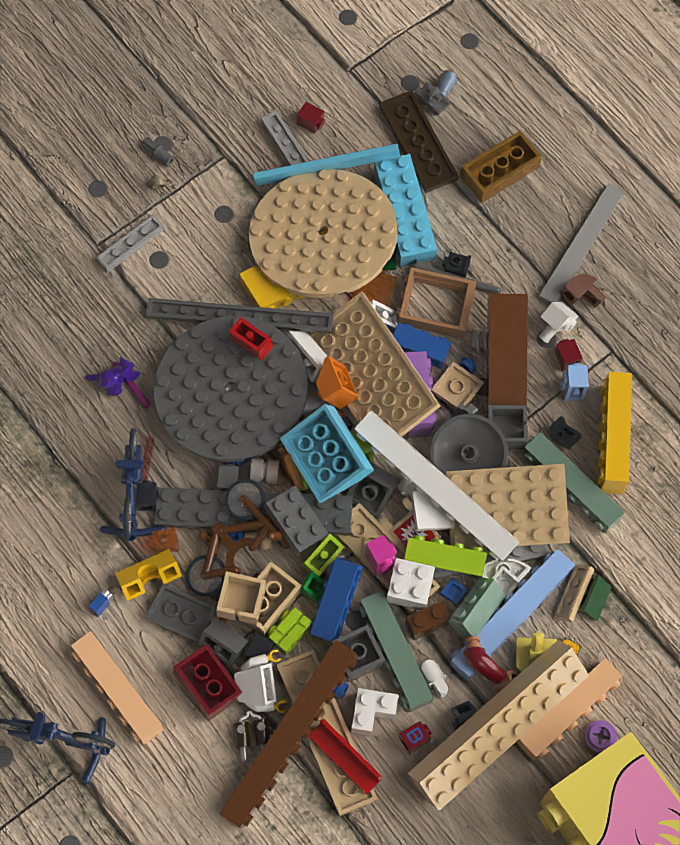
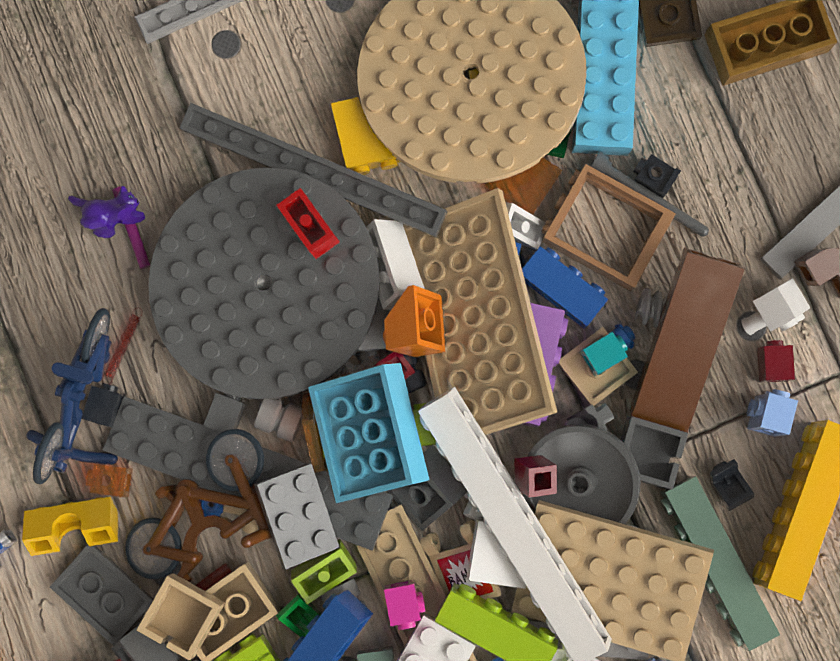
camera: 20 degrees right, 15 degrees up
(439, 451) = (535, 476): none -> dark red brick
(459, 374) = (604, 353): none -> teal brick

